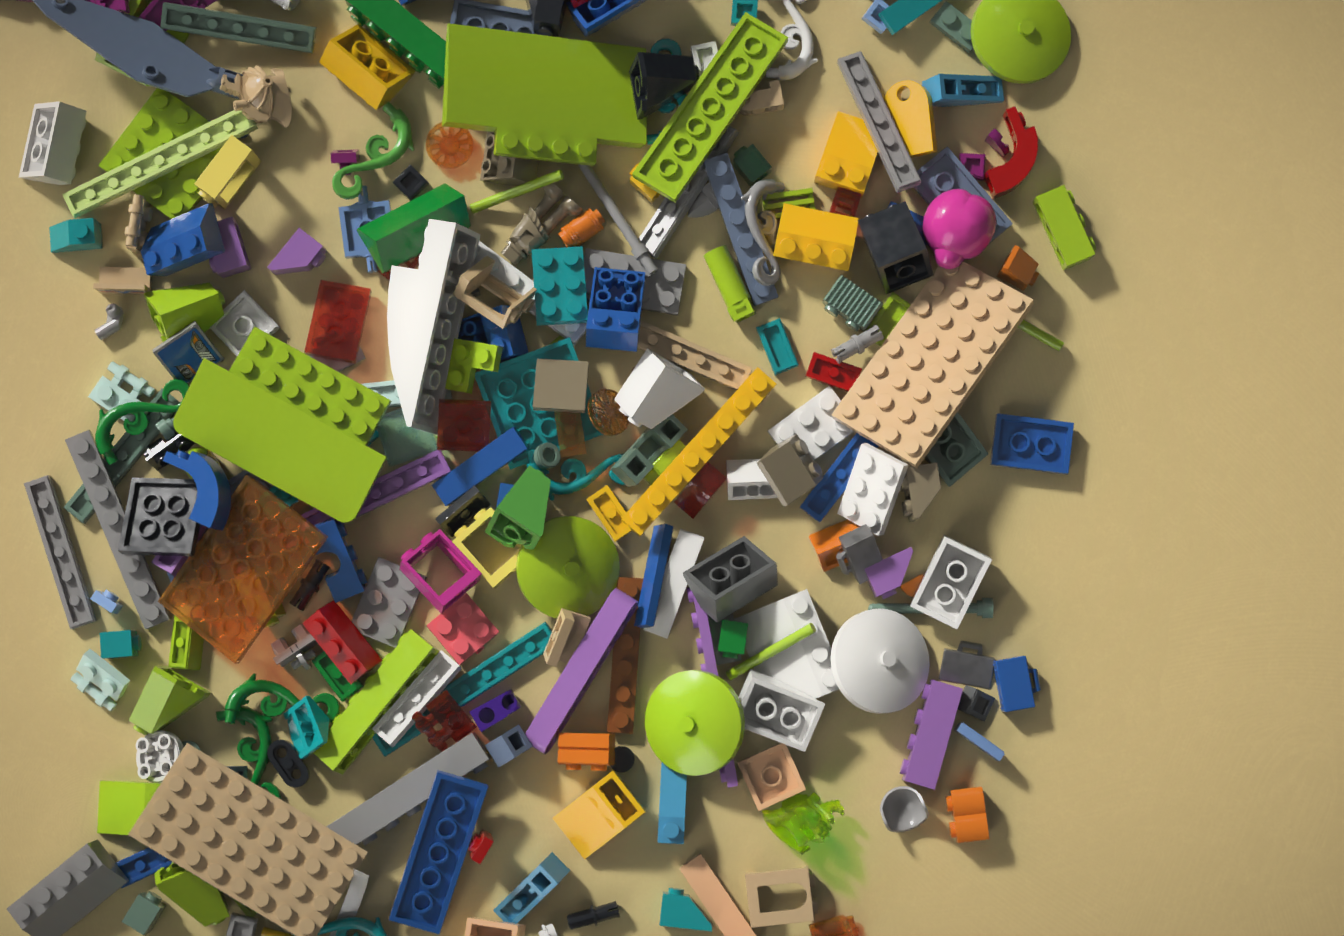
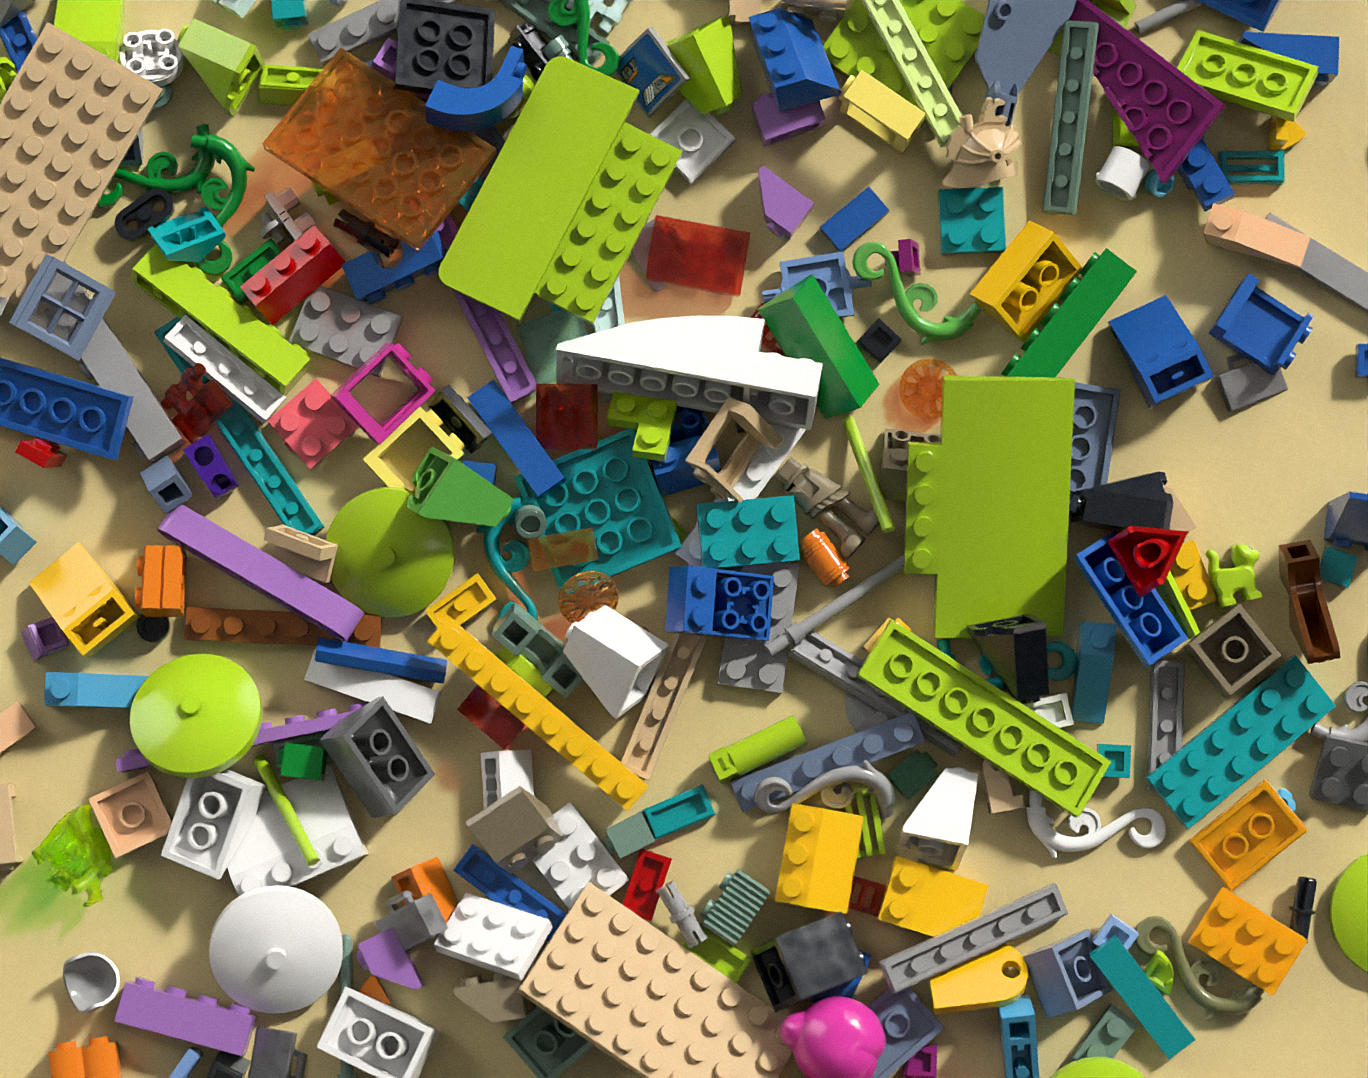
camera: 80 degrees right, 0 degrees up
(312, 199) = (854, 219): none -> blue tile
(317, 108) = (971, 220): none -> teal plate
(362, 826) = (62, 307): none -> sand blue piece
(560, 385) = (617, 536): dark tan tile -> none
(629, 847) = (44, 638): none -> medium lavender slope
(668, 23) = (1093, 671): none -> dark azure slope
(789, 140) = (942, 820): none -> white slope
(795, 384) = (628, 836): none -> sand green brick
(907, 52) = (1066, 974): none -> sand blue slope

